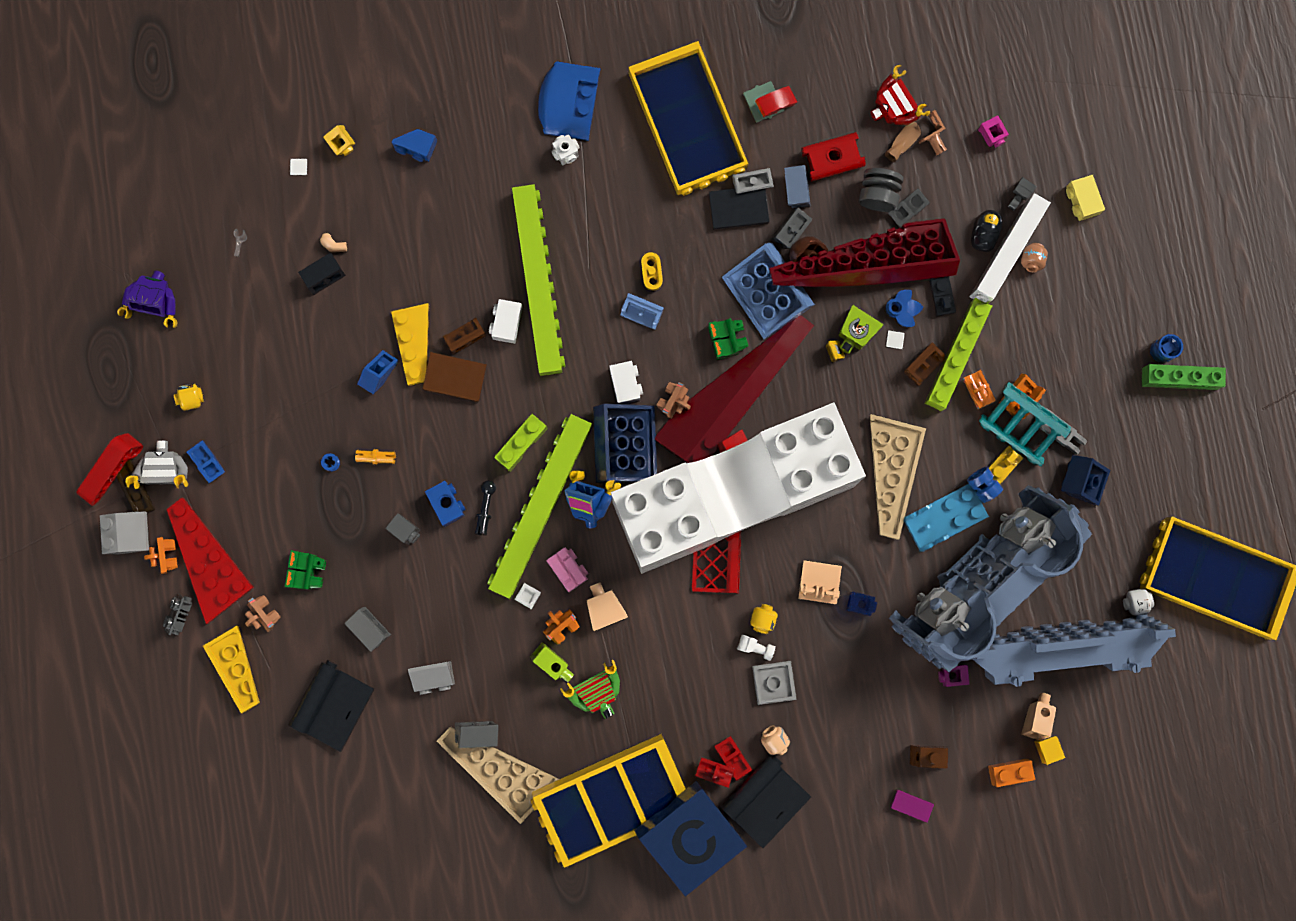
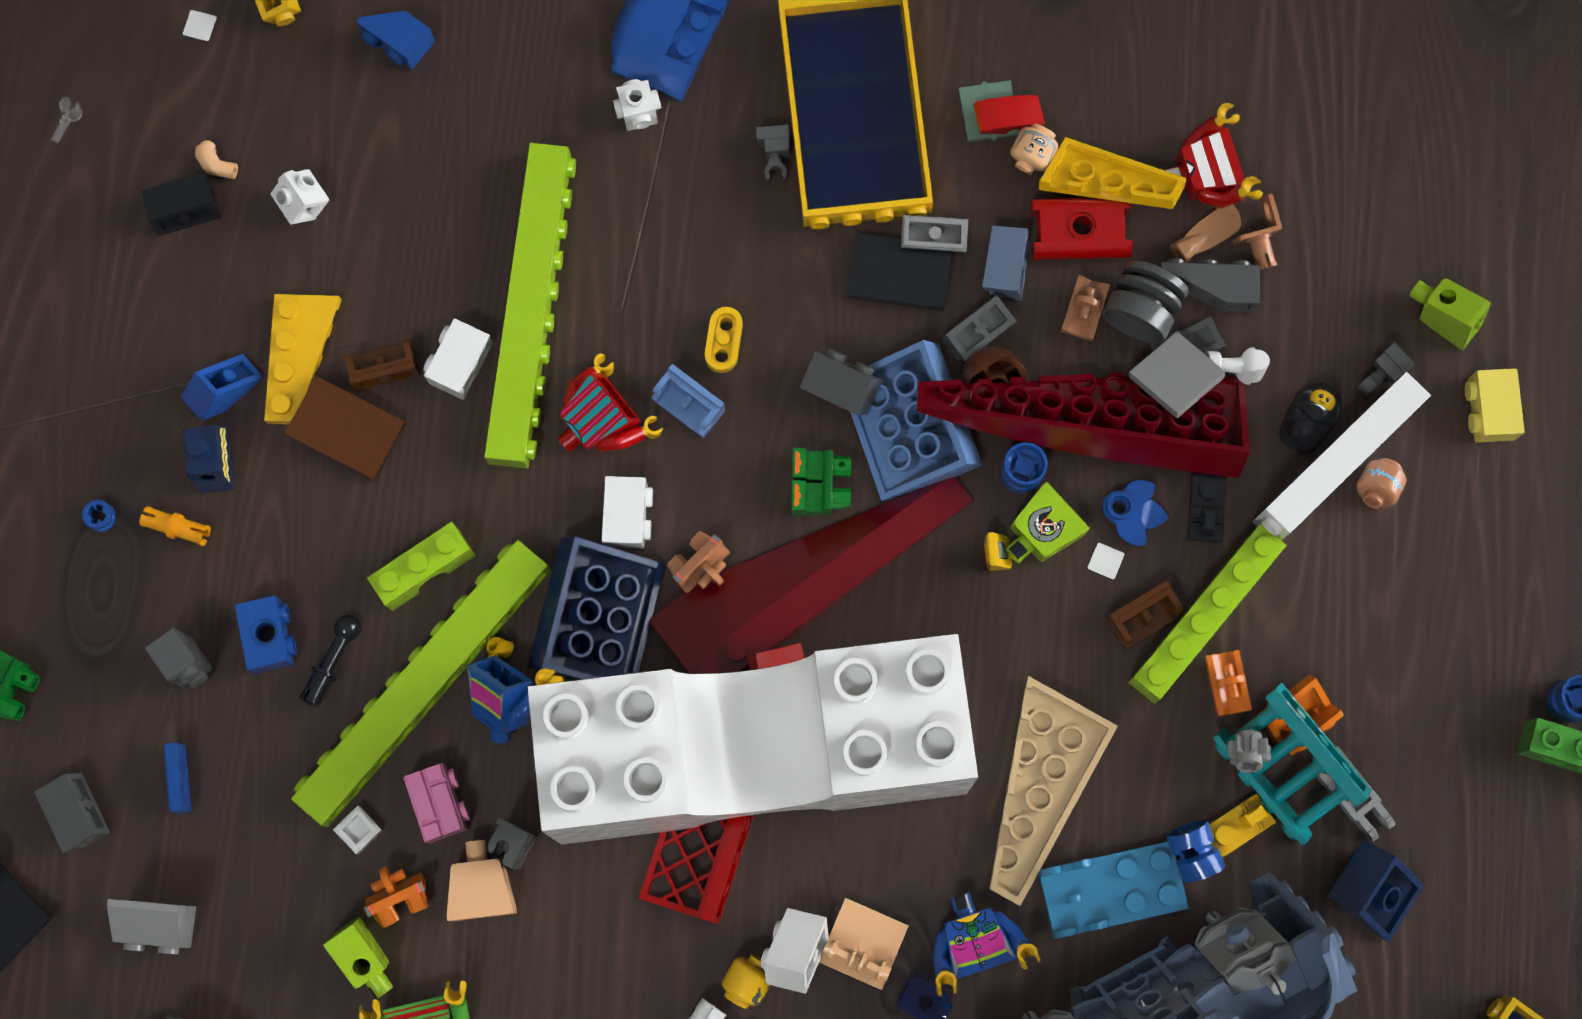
camera: 25 degrees right, 5 degrees down
(384, 414) = (208, 453): none -> dark blue torso
(389, 251) = (299, 196): none -> white brick
(420, 594) = (177, 778): none -> blue tile
(595, 332) = (599, 413): none -> red torso
(616, 576) = (512, 840): none -> dark grey hinge
(650, 153) = (776, 144): none -> dark grey piece
(725, 279) = (841, 382): none -> dark grey brick
(785, 595) = (795, 950): none -> white brick
(795, 117) = (1034, 148): none -> light nougat head
(837, 123) = (1108, 176): none -> yellow wing
(838, 300) = (1023, 468): none -> blue wheel
(848, 202) = (1085, 308): none -> nougat hips
(881, 565) = (976, 943): none -> torso
(908, 226) = (1177, 374): none -> light grey tile
(919, 169) = (1222, 286): none -> dark grey slope
(945, 212) = (1248, 368): none -> white leg
(993, 126) = (1367, 246): dark pink brick -> none
(1001, 423) = (1249, 751): none -> light grey gear
(1048, 151) = (1451, 310): none -> lime torso

